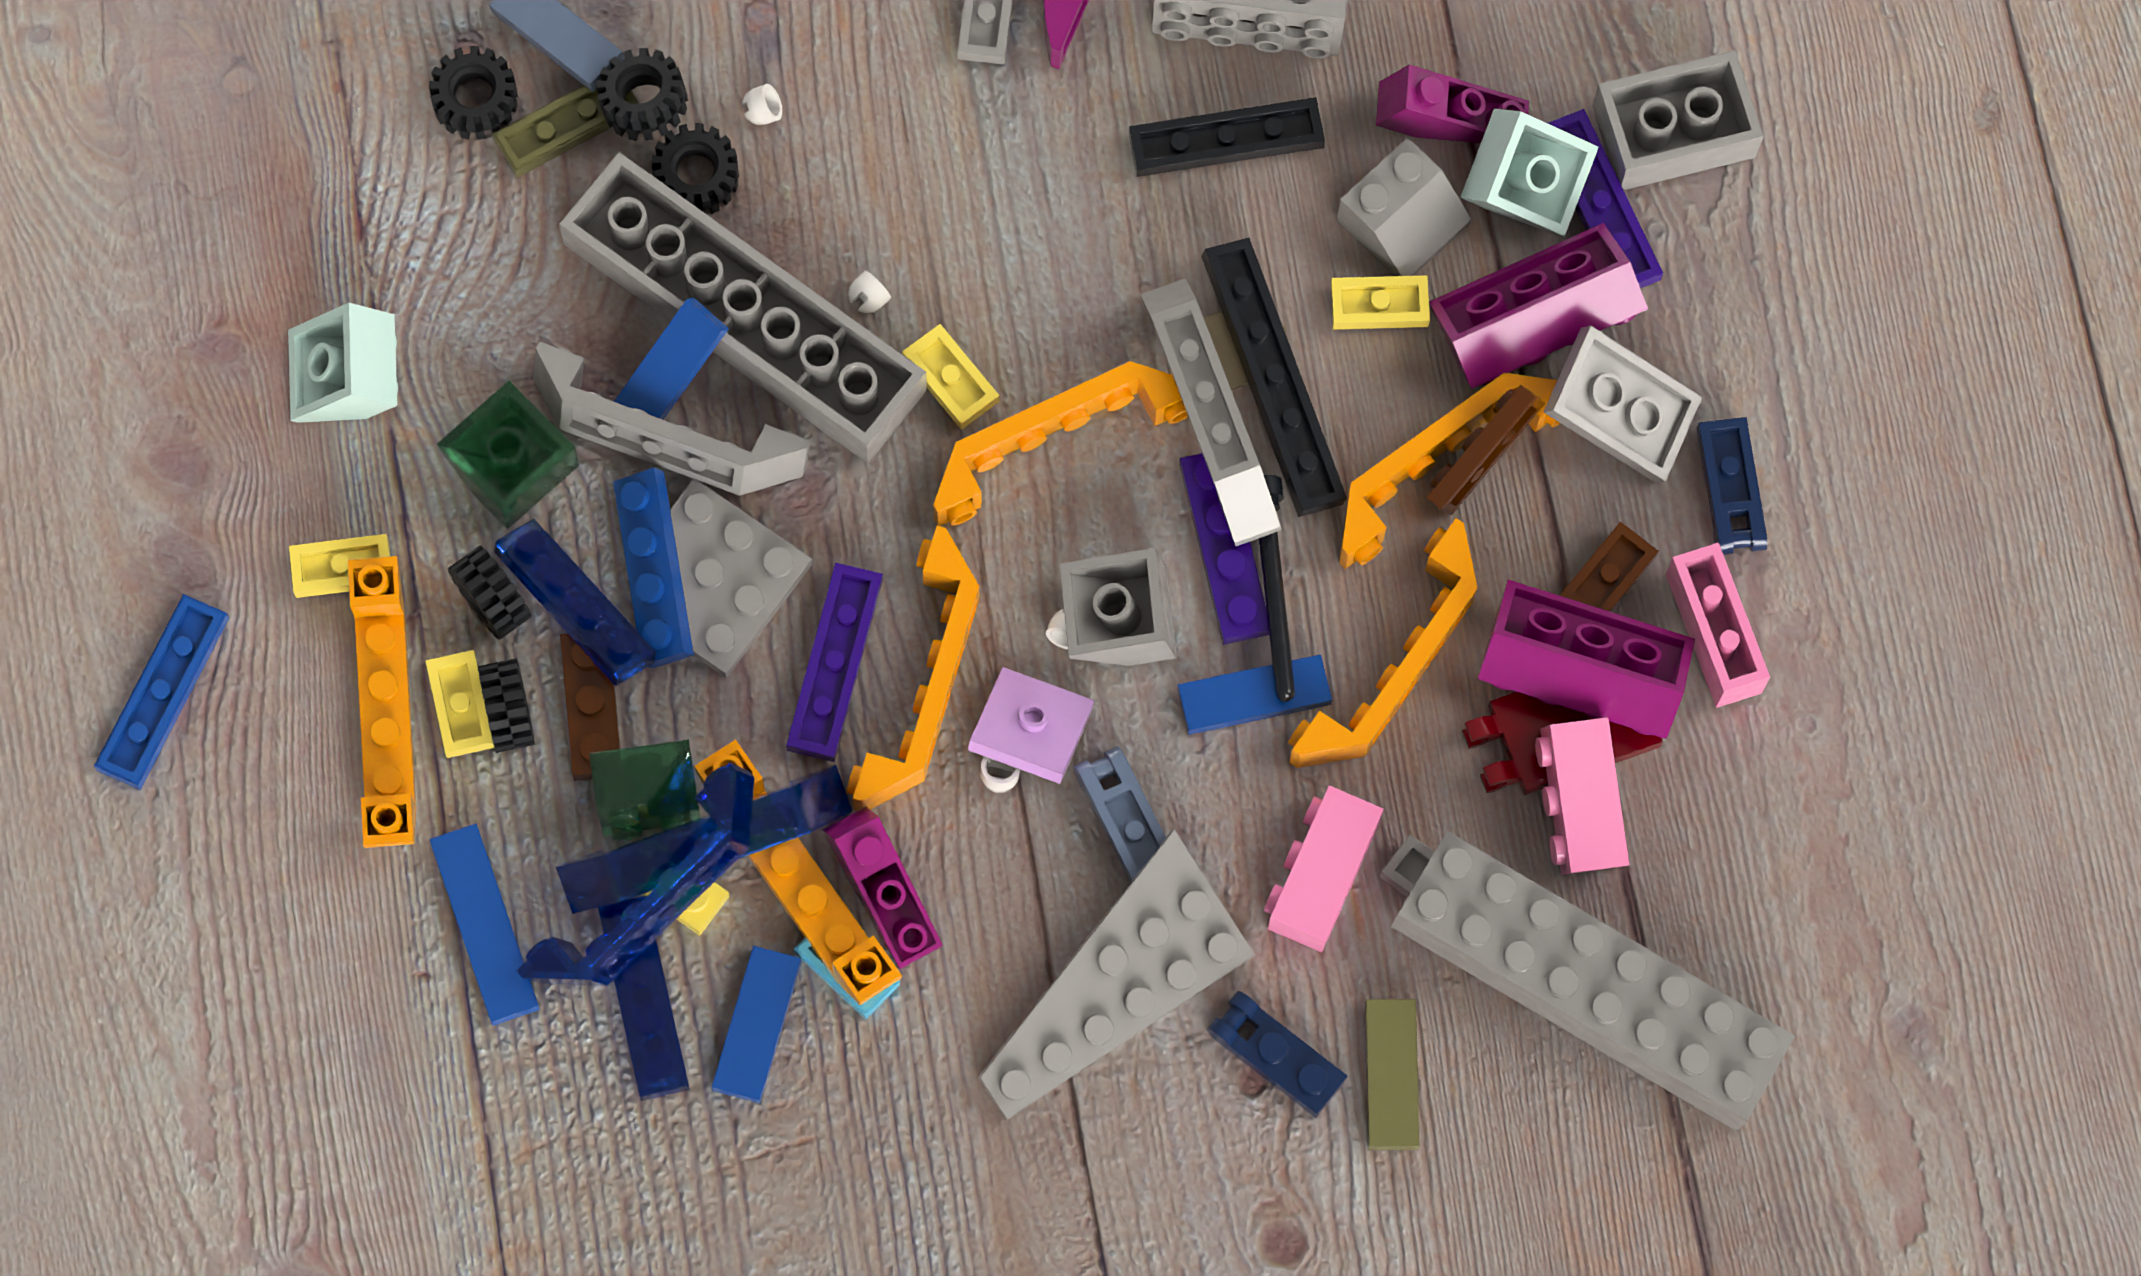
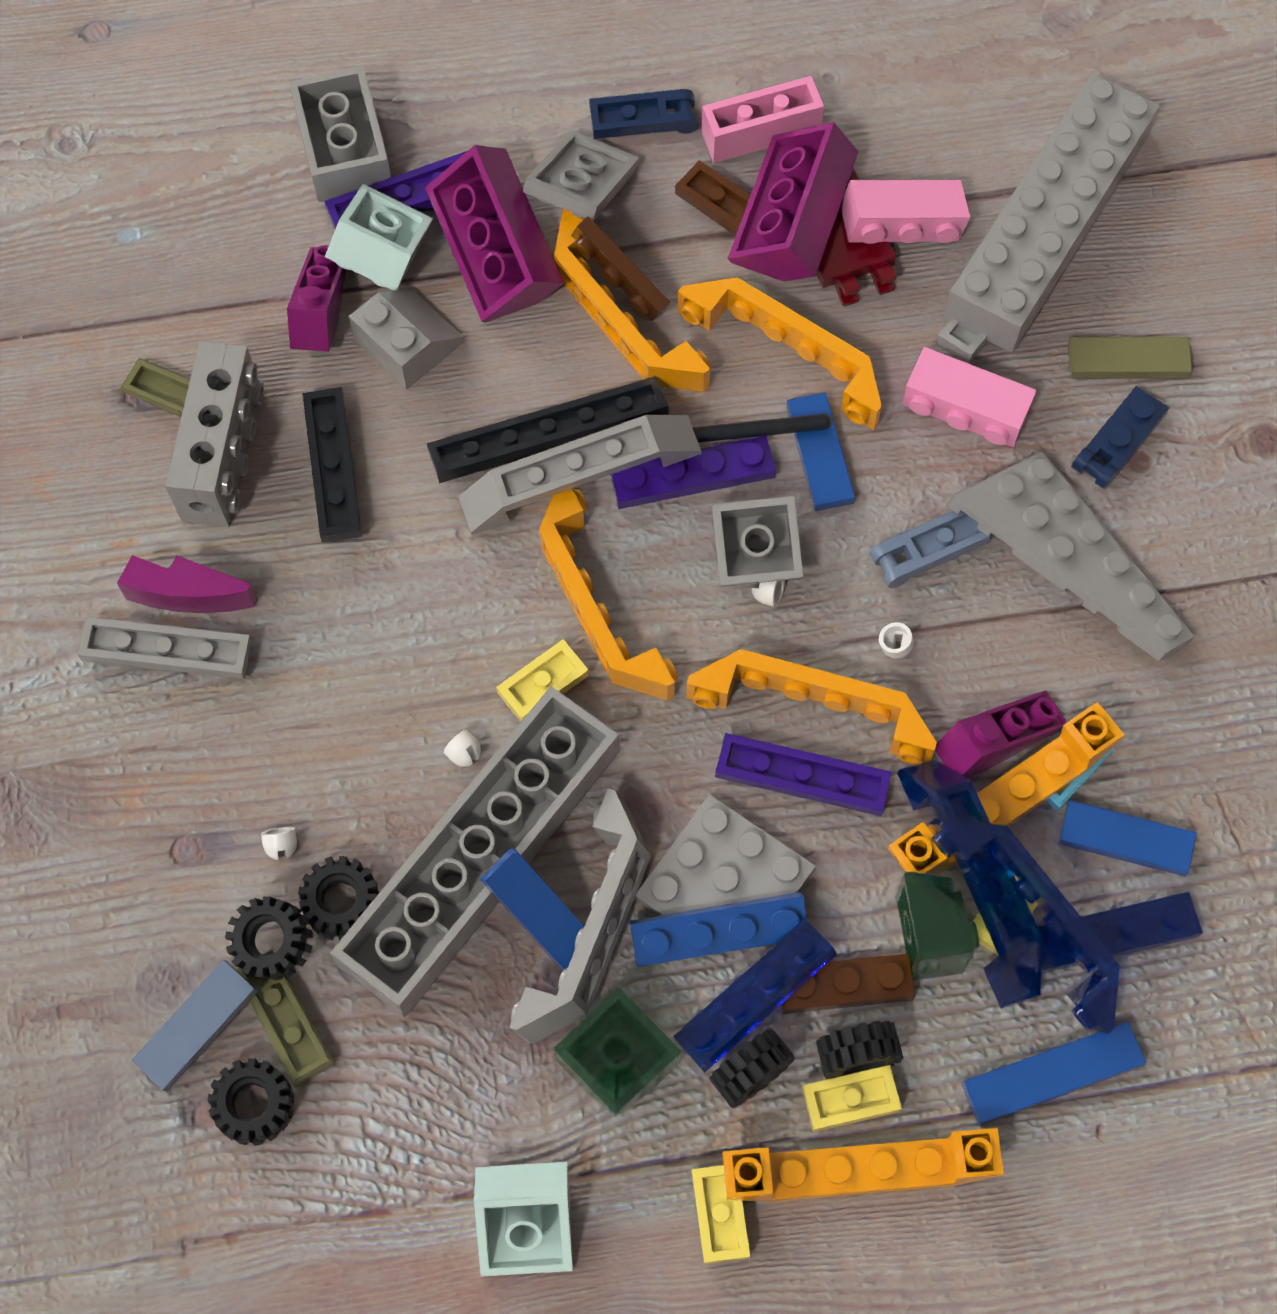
camera: 85 degrees left, 5 degrees down
(1031, 725) = (857, 615): lavender plate -> none
(1380, 302) = (484, 352): light yellow plate -> none

